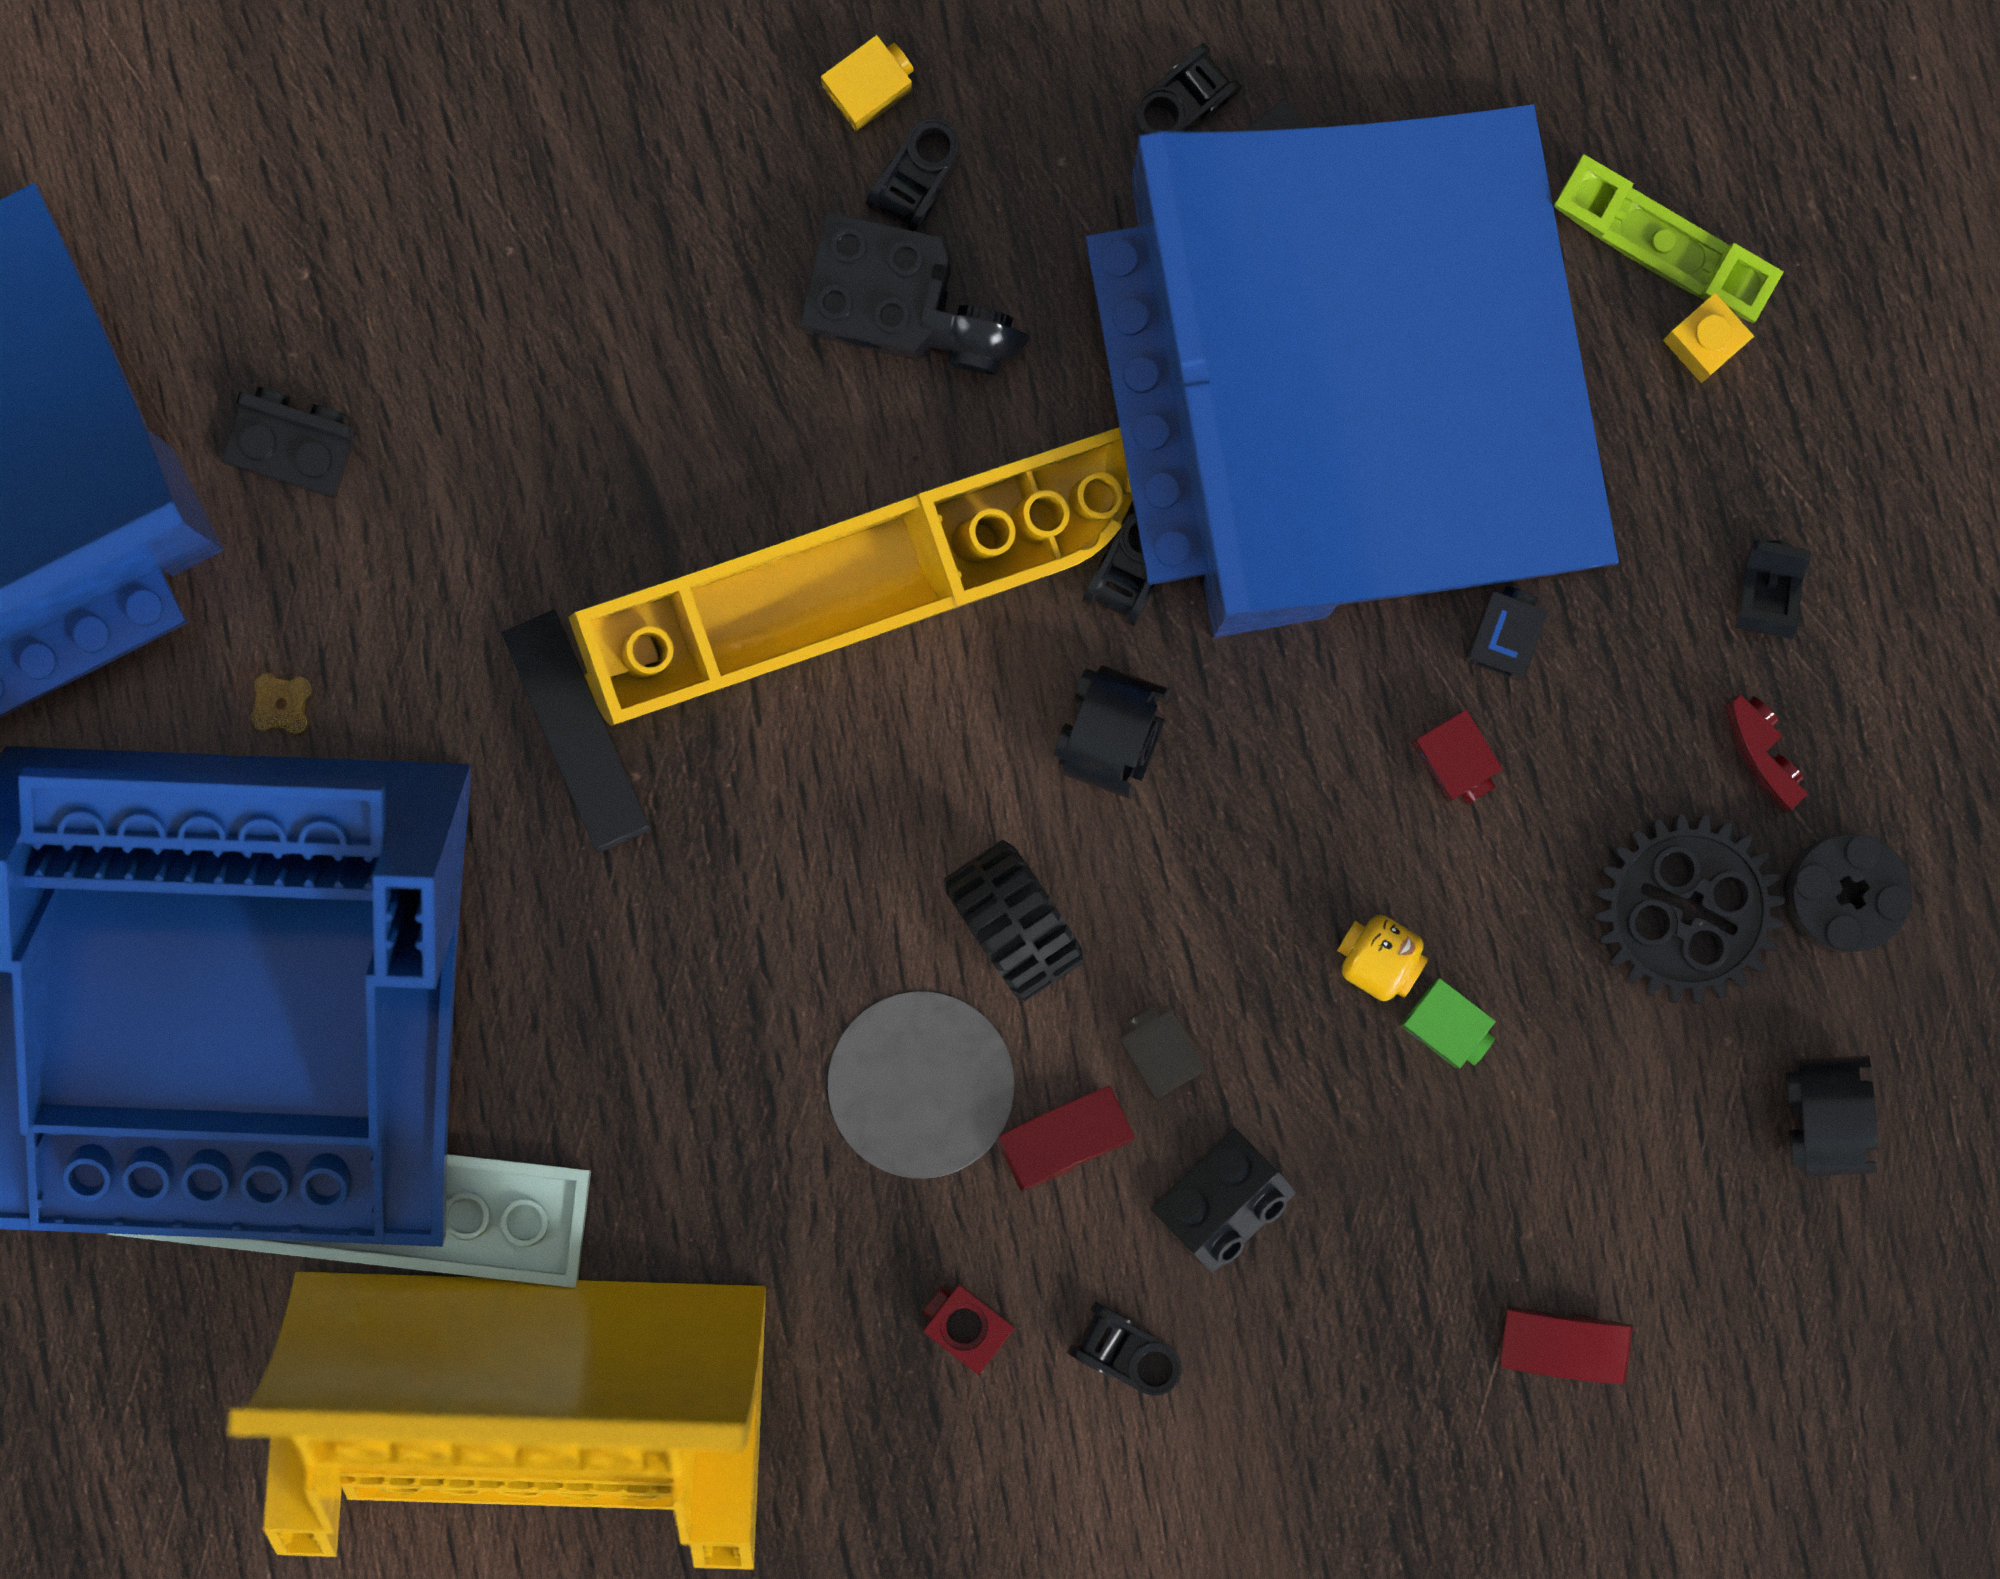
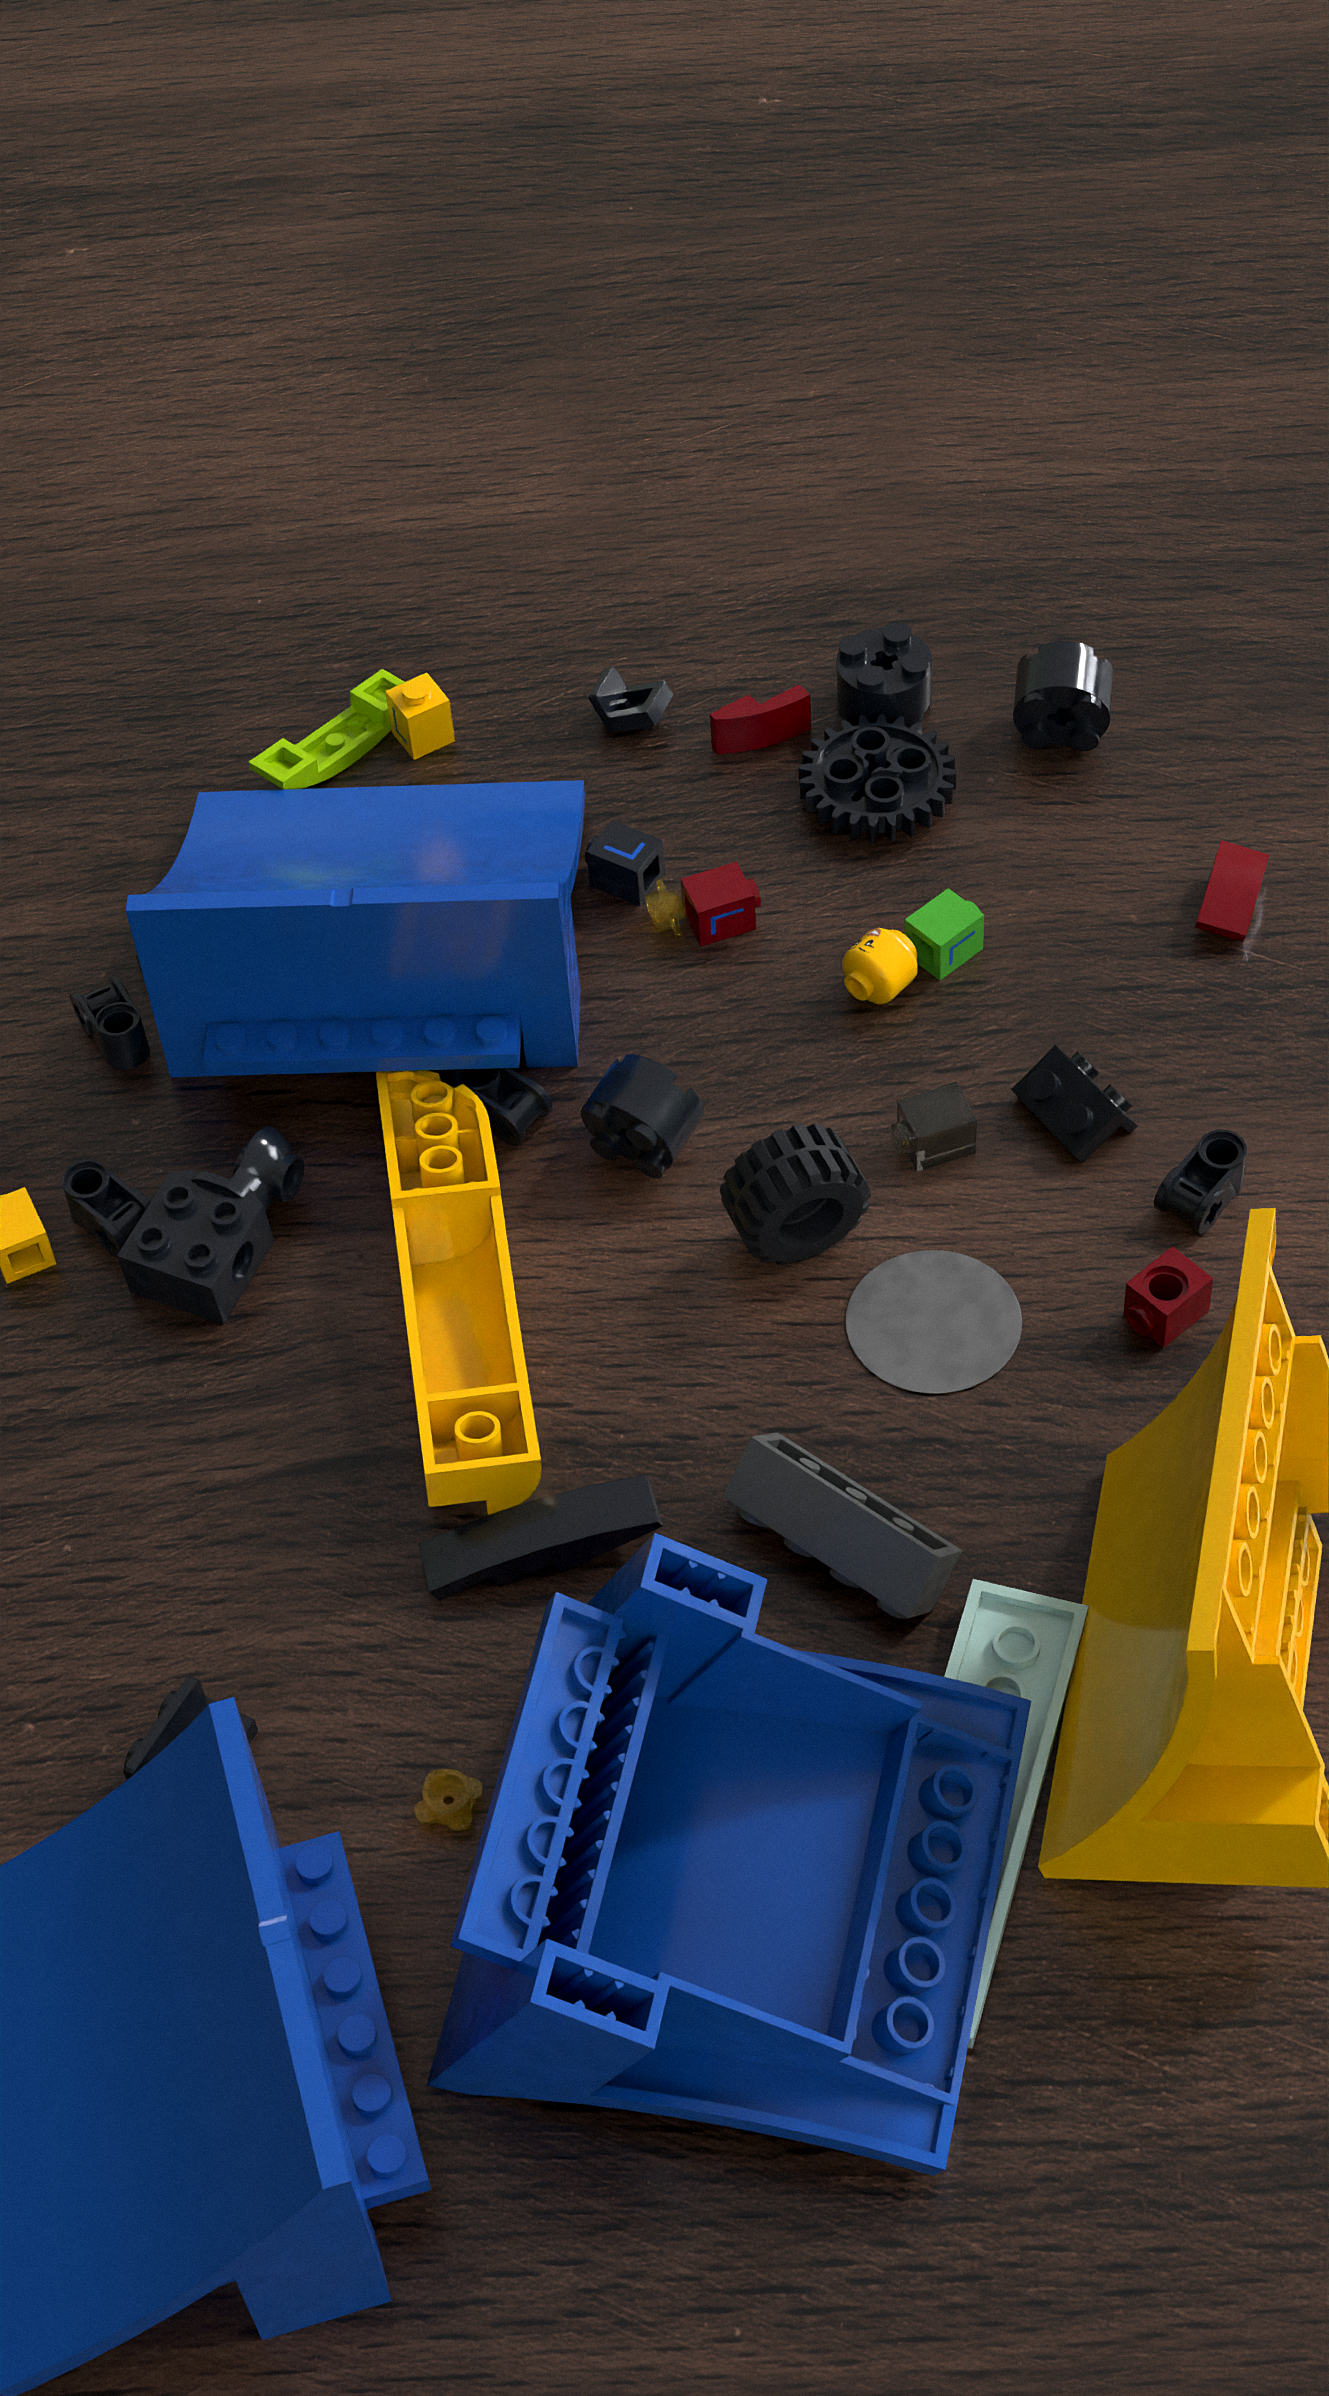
camera: 70 degrees left, 35 degrees down
(626, 1032) = (841, 1525): none -> dark grey brick
(1065, 1138) = (1001, 1206): dark red slope -> none
(1442, 695) = (665, 908): none -> clear yellow plate

